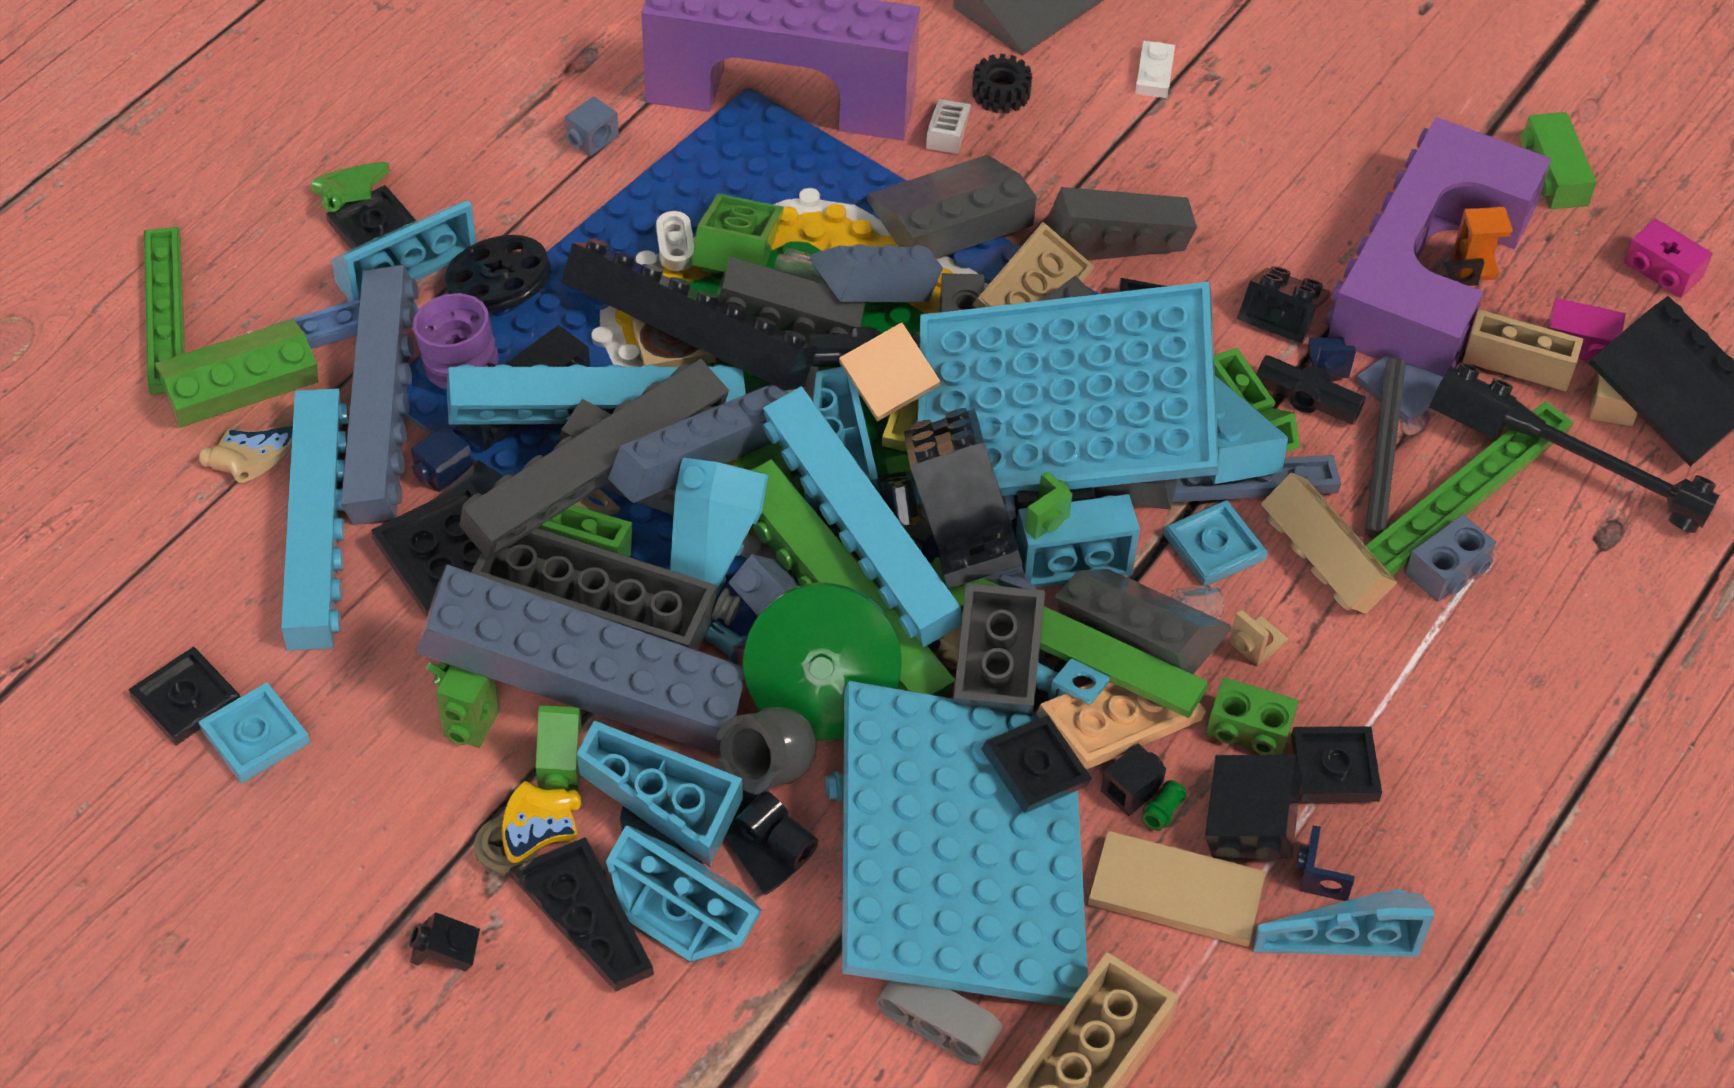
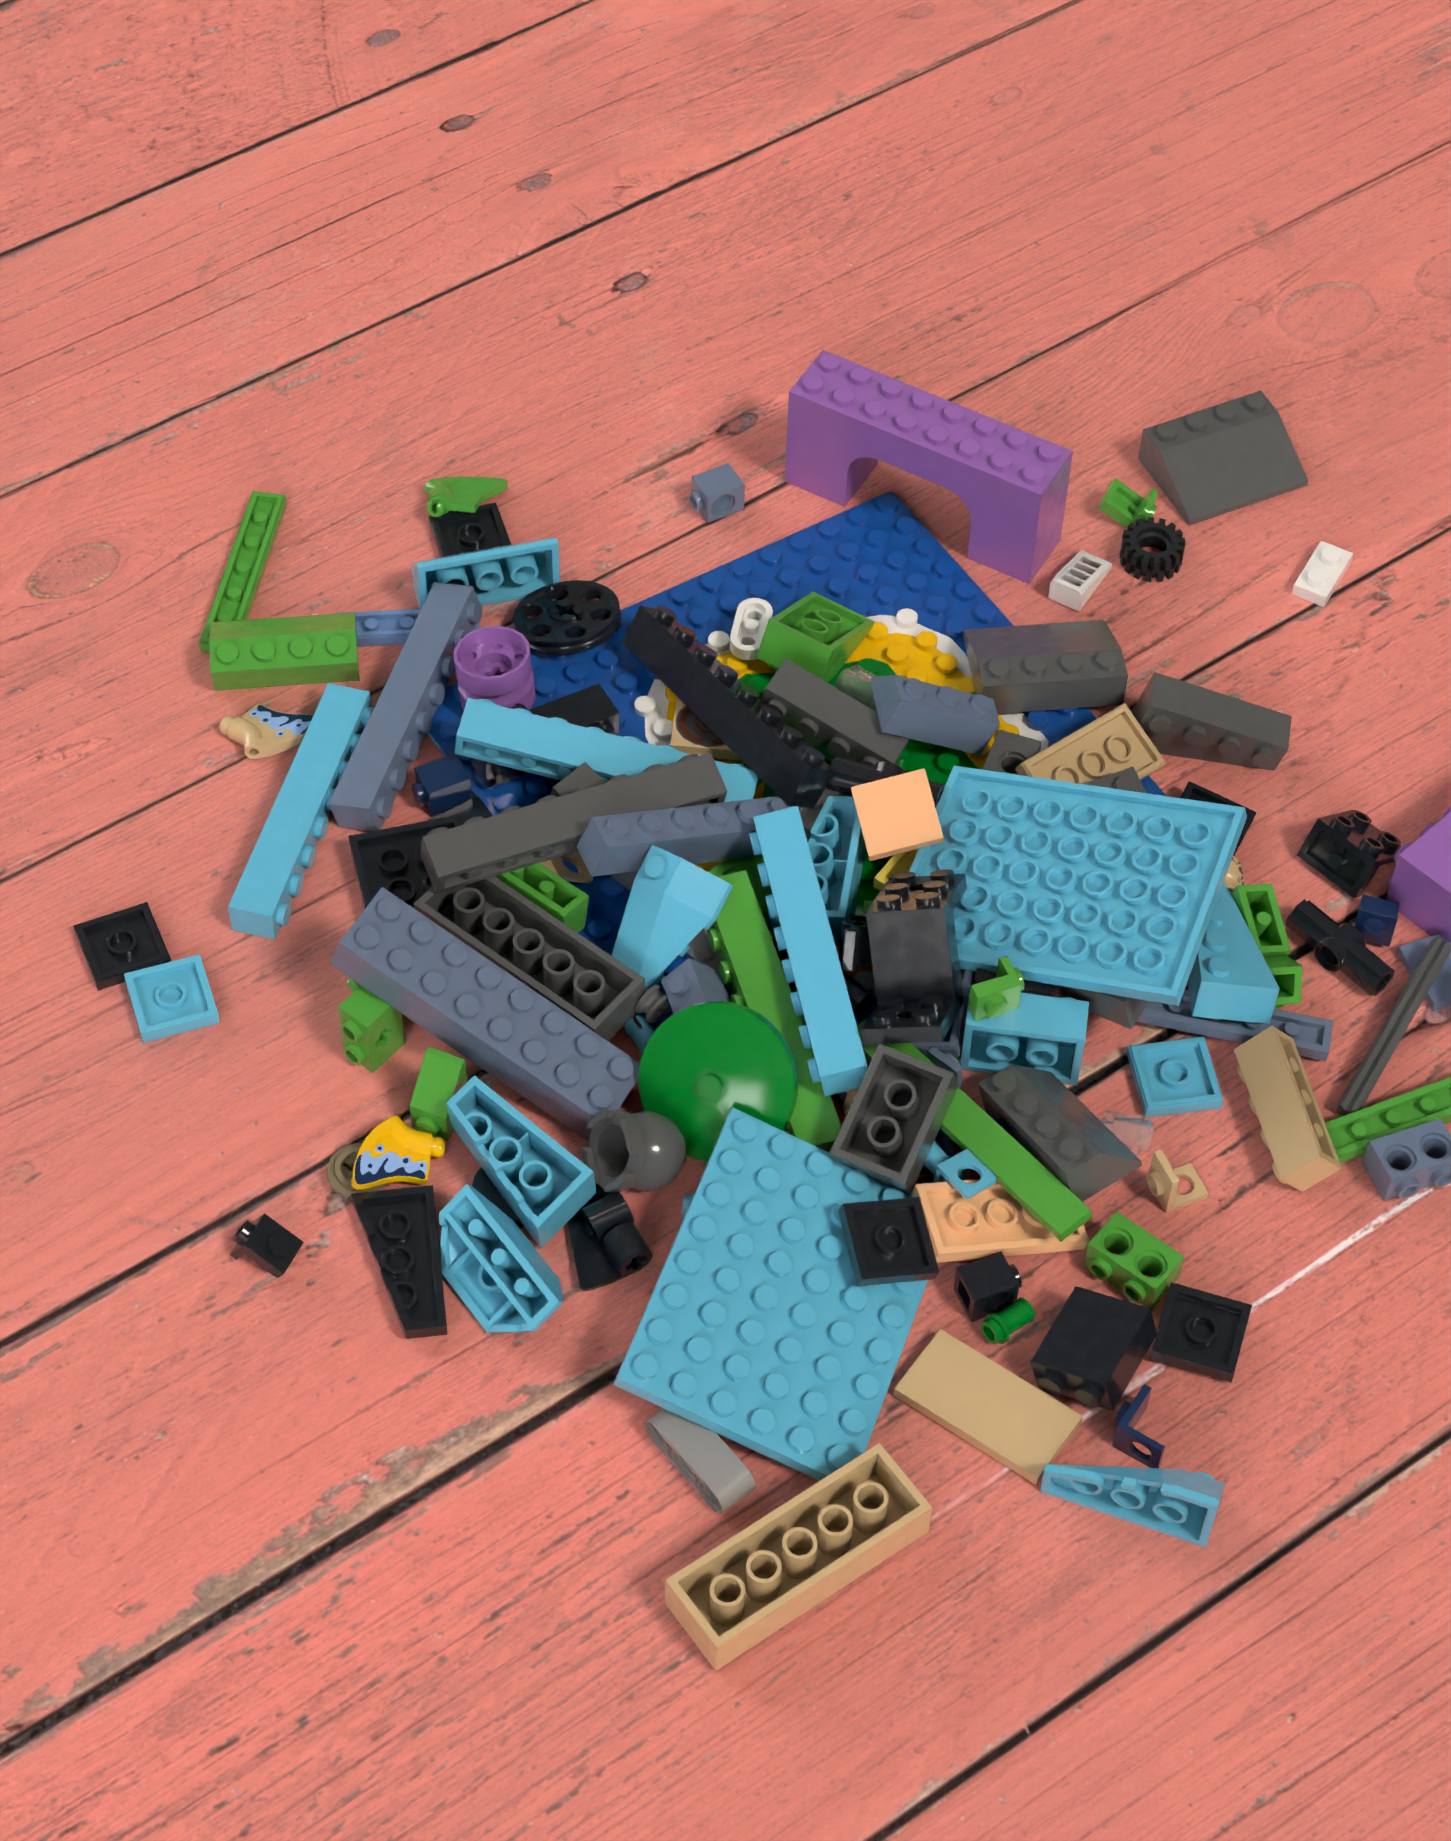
camera: 20 degrees right, 0 degrees up
(964, 51) = (1126, 505): none -> bright green bracket

